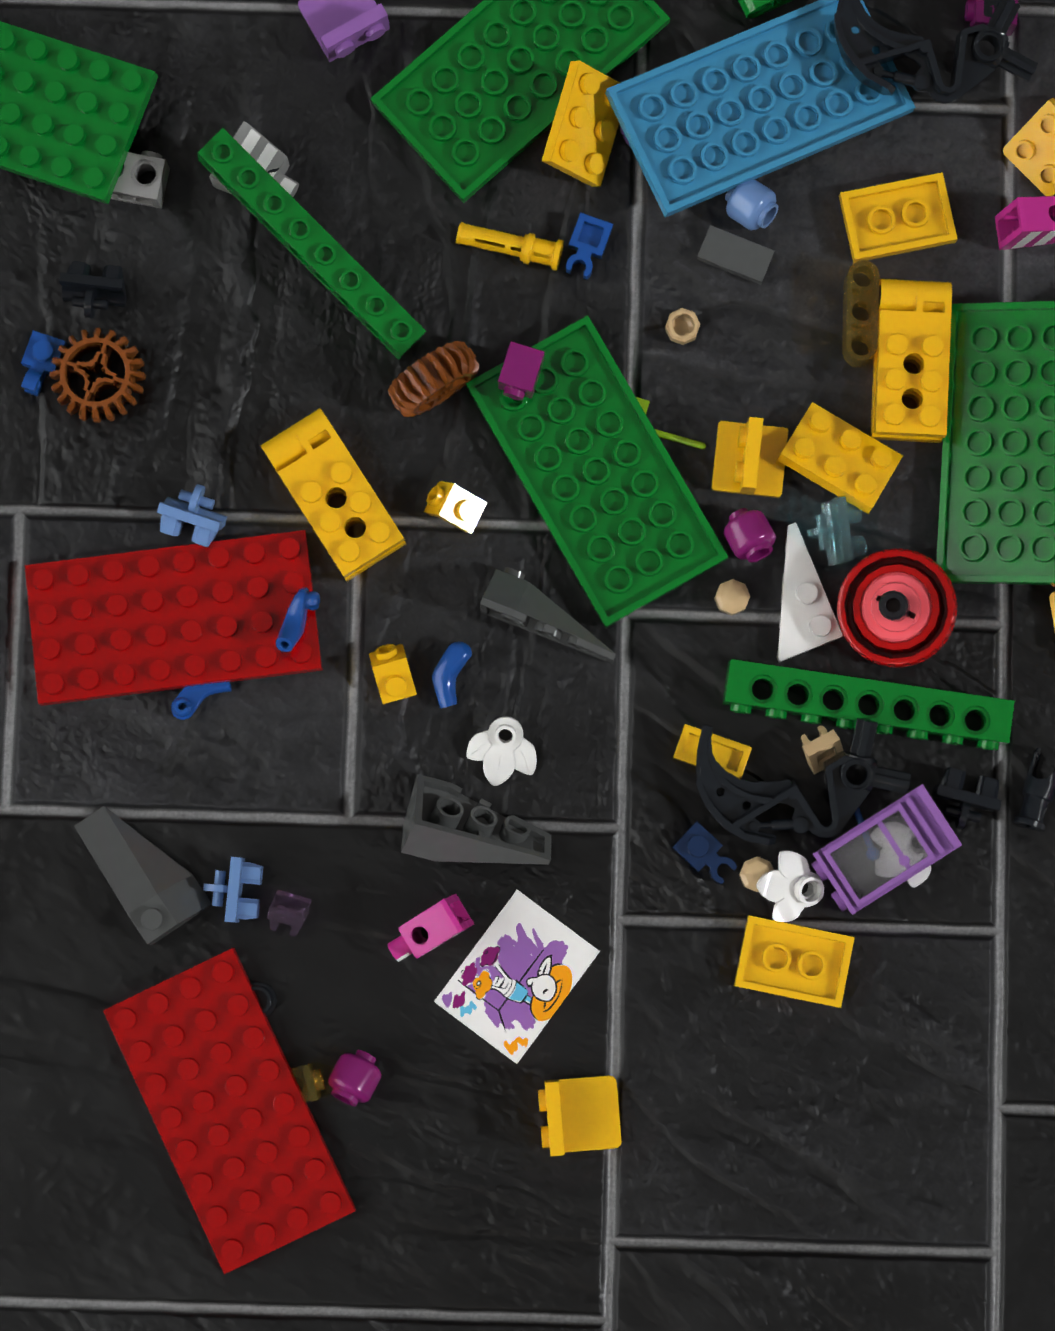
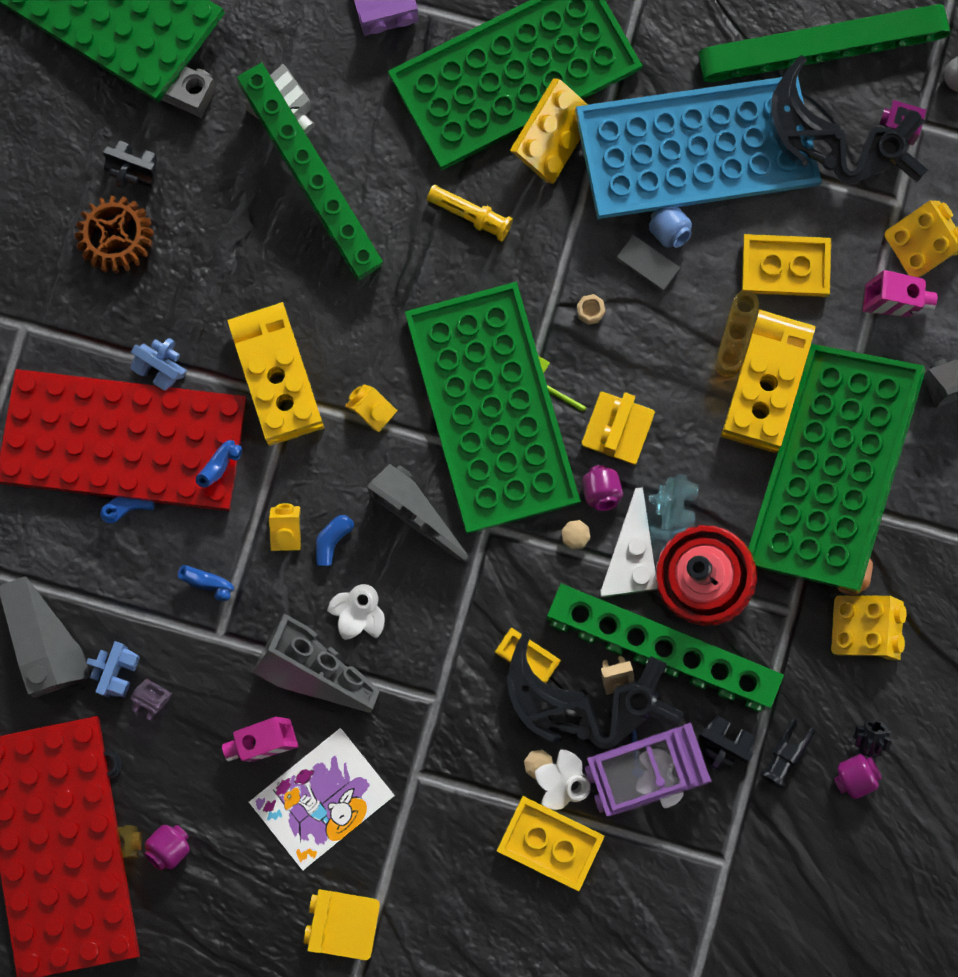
camera: 15 degrees right, 5 degrees down
(38, 358) = (71, 212): blue plate -> none
(317, 759) = (206, 581): none -> blue arm
(433, 379) = (379, 301): dark orange gear -> none
(520, 371) = (450, 311): magenta brick -> none
(589, 241) = (533, 223): blue plate -> none
(701, 849) = (498, 732): dark blue plate -> none
(840, 458) = (691, 444): yellow plate -> none

